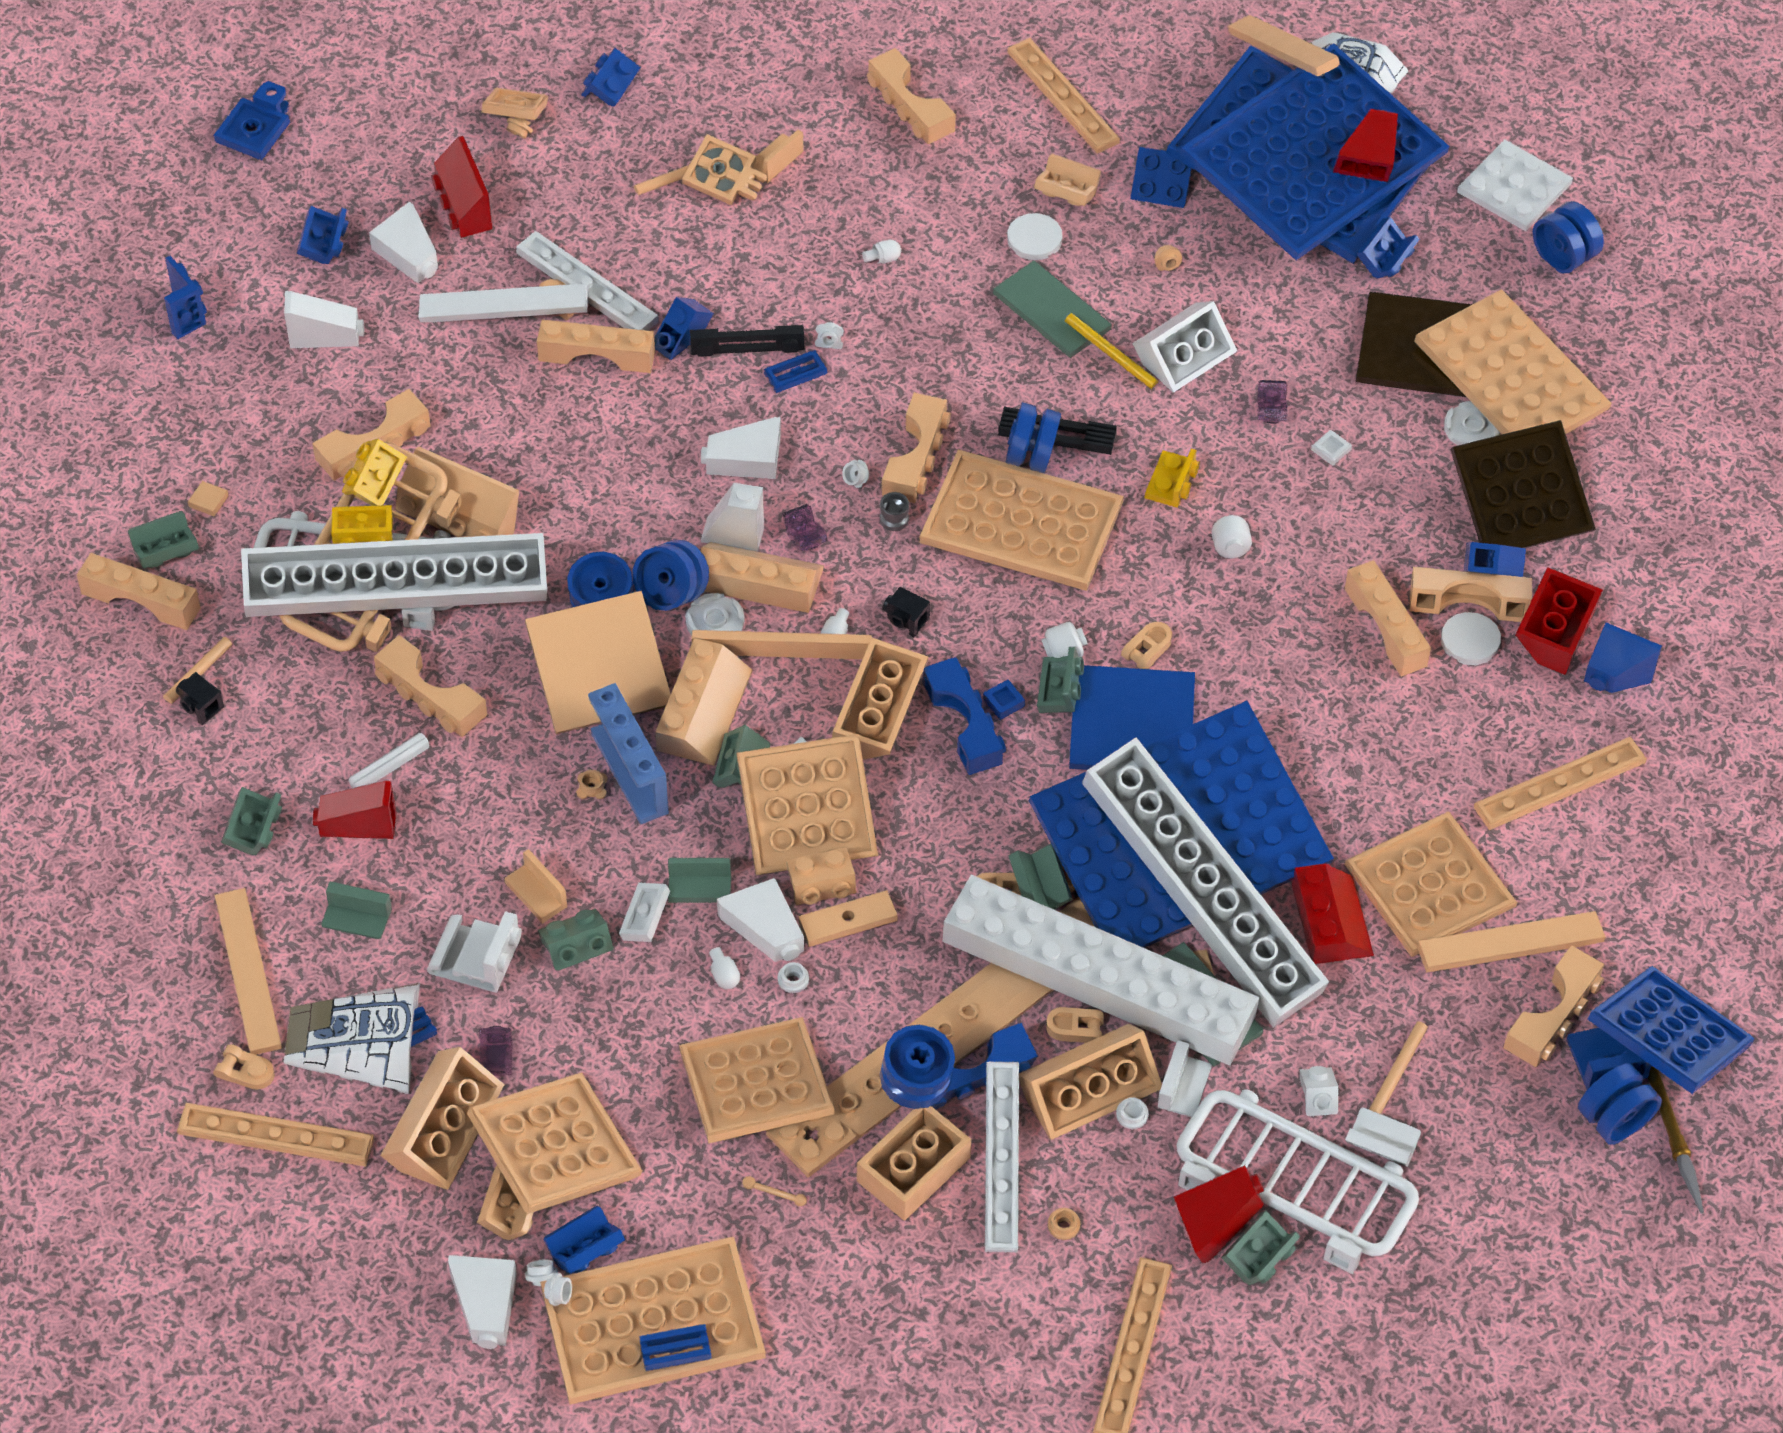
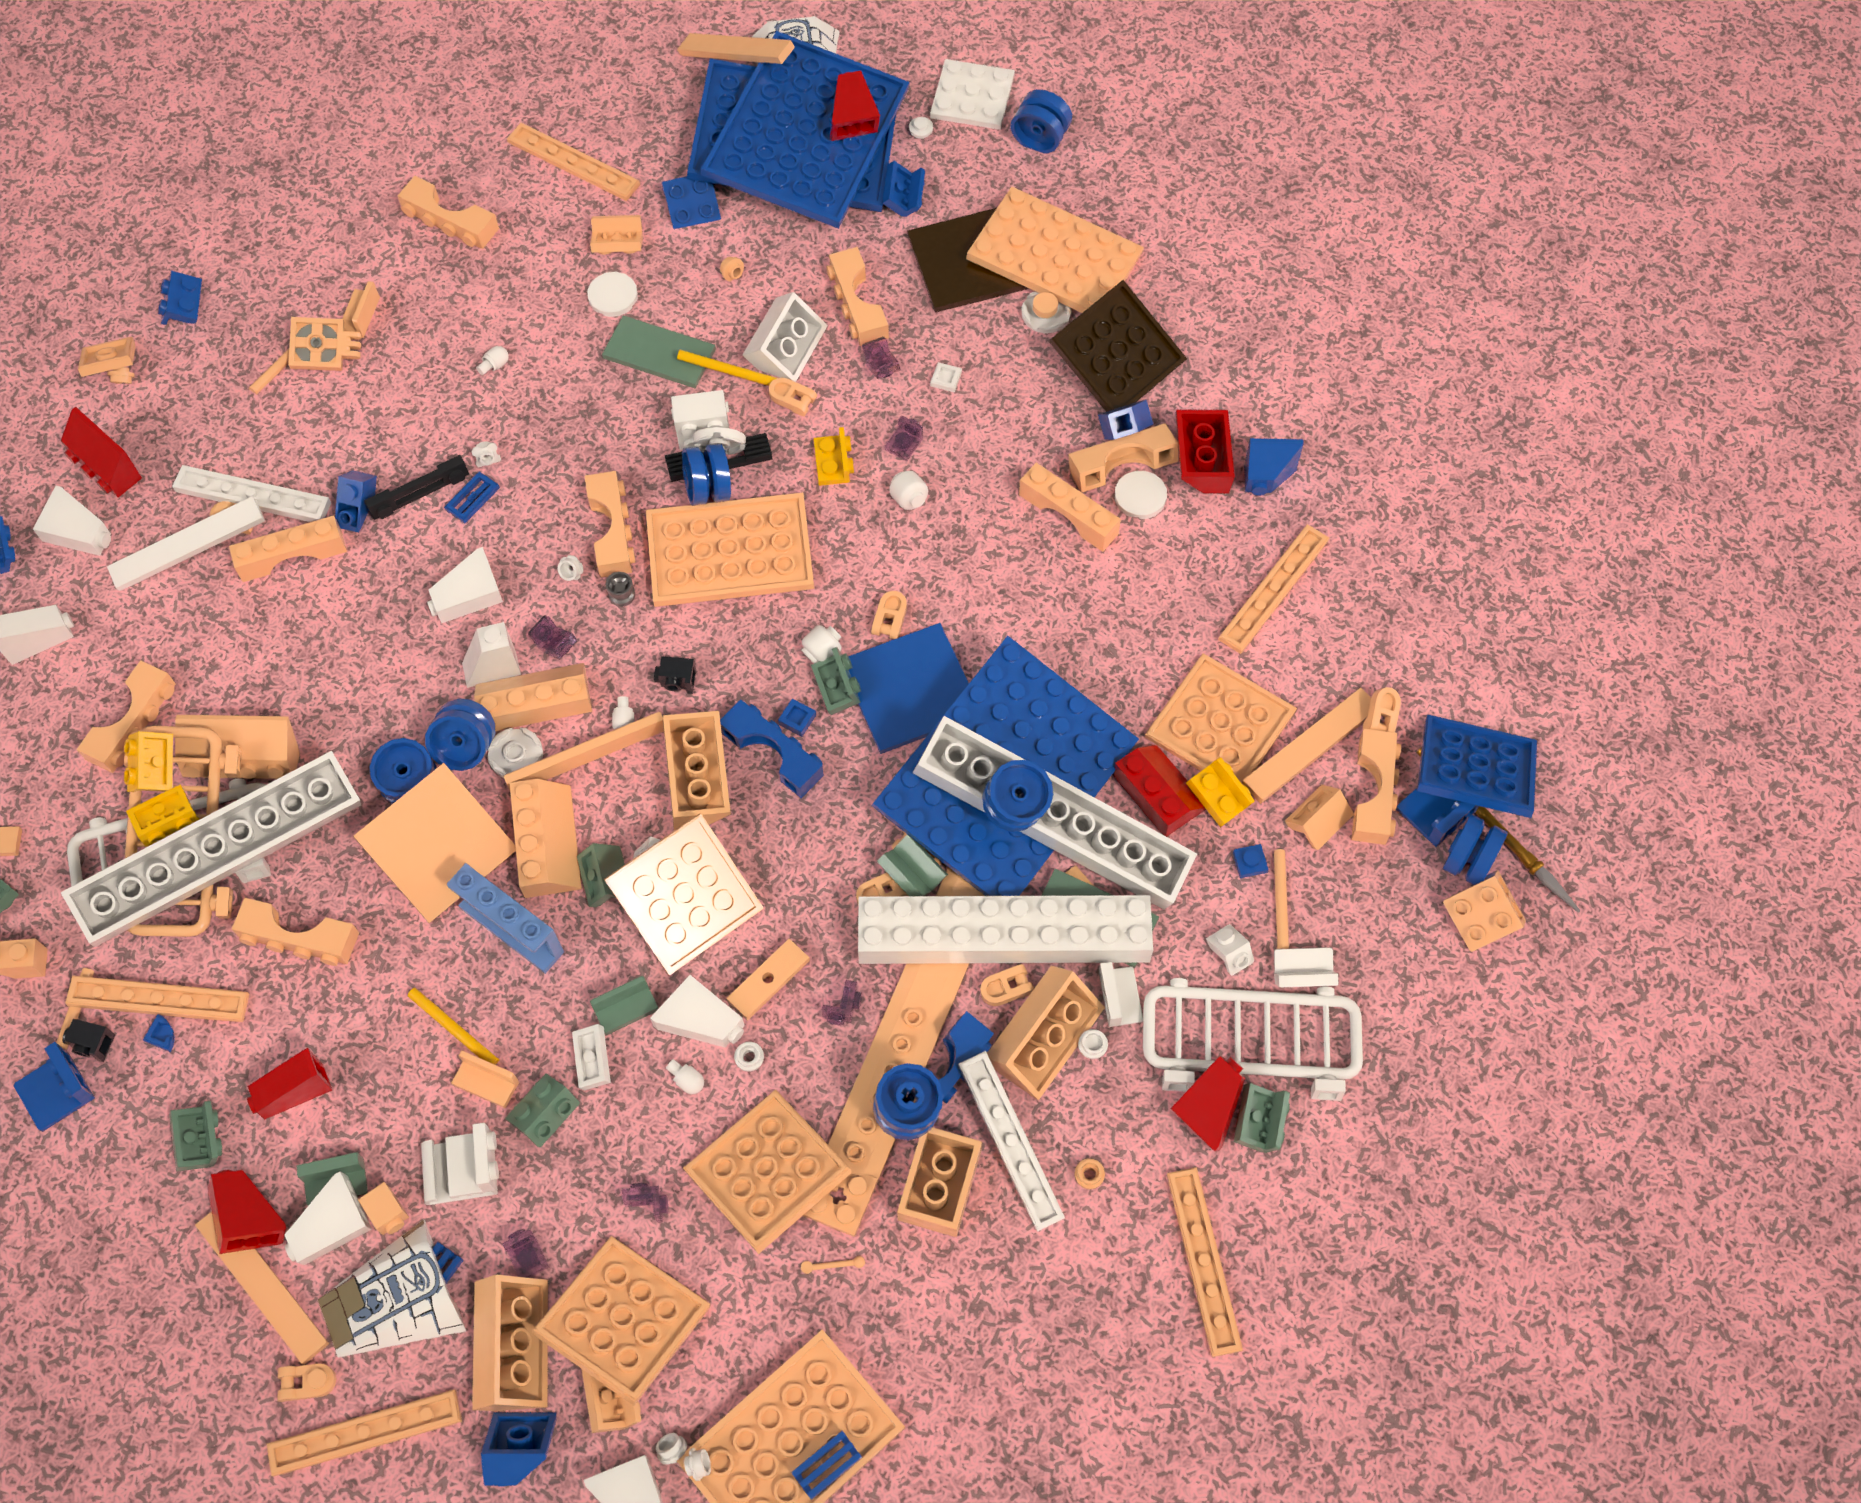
camera: 25 degrees left, 10 degrees up
(148, 727) = (53, 1089): none -> blue bracket
(261, 902) = (242, 1214): none -> red slope
(264, 723) = (160, 1034): none -> blue tile
(277, 691) = (157, 999): none -> light nougat tile
(332, 943) = (327, 1222): none -> white slope
(388, 955) = (384, 1209): none -> light nougat brick
(390, 761) = (293, 1020): white axle -> none
(399, 1203) = (515, 1446): none -> blue slope
(528, 827) = (451, 1026): none -> yellow bar
(583, 1240) = (694, 1400): blue bracket -> none
(592, 777) = (477, 954): light nougat plate -> none
(631, 1051) = (641, 1195): none -> clear purple bracket
(821, 876) = (727, 951): light nougat bracket -> none
(915, 970) = (850, 1000): none -> bracket
(1057, 384) = (698, 412): none -> white brick
(1072, 412) = (731, 439): none -> white tile
(1156, 395) = (783, 392): none -> light nougat plate
(1168, 838) = (1032, 800): none -> blue wheel
(1256, 488) = (905, 439): none -> clear purple bracket
(1285, 309) = (866, 319): none -> light nougat arch
(1386, 1021) = (1250, 861): none -> blue plate
(1389, 942) = (1220, 791): none -> yellow bracket
(1440, 197) = (921, 127): none -> white plate
(1472, 417) = (1045, 305): none -> light nougat tile
(1483, 1011) = (1321, 815): none -> light nougat panel
(1601, 1165) = (1485, 912): none -> light nougat bracket
(1610, 934) = (1384, 703): none -> light nougat plate

